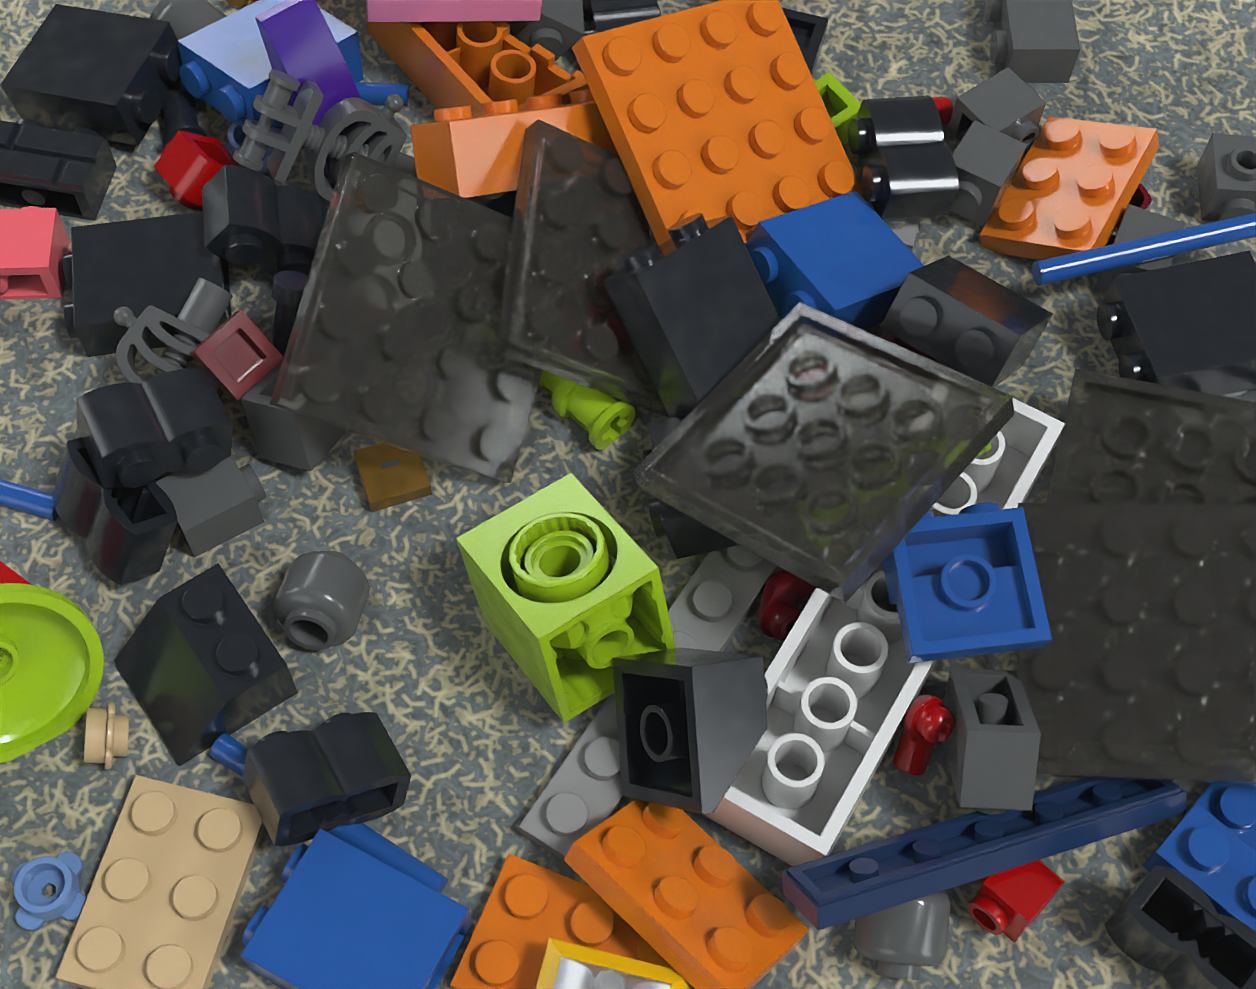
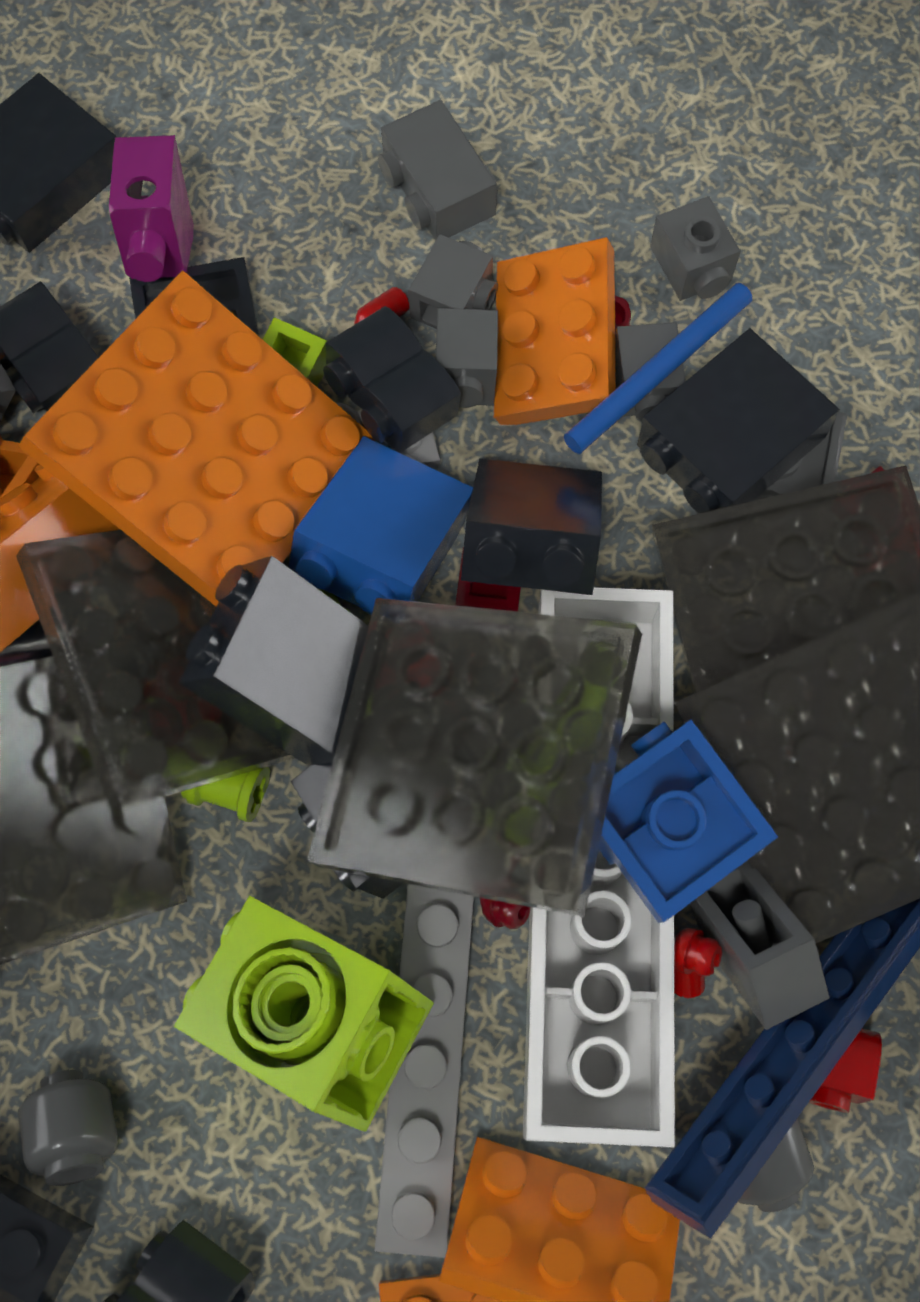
camera: 25 degrees left, 10 degrees up
(391, 475) = (71, 963): pearl gold tile -> none
(687, 723) = (487, 1087): black slope -> none

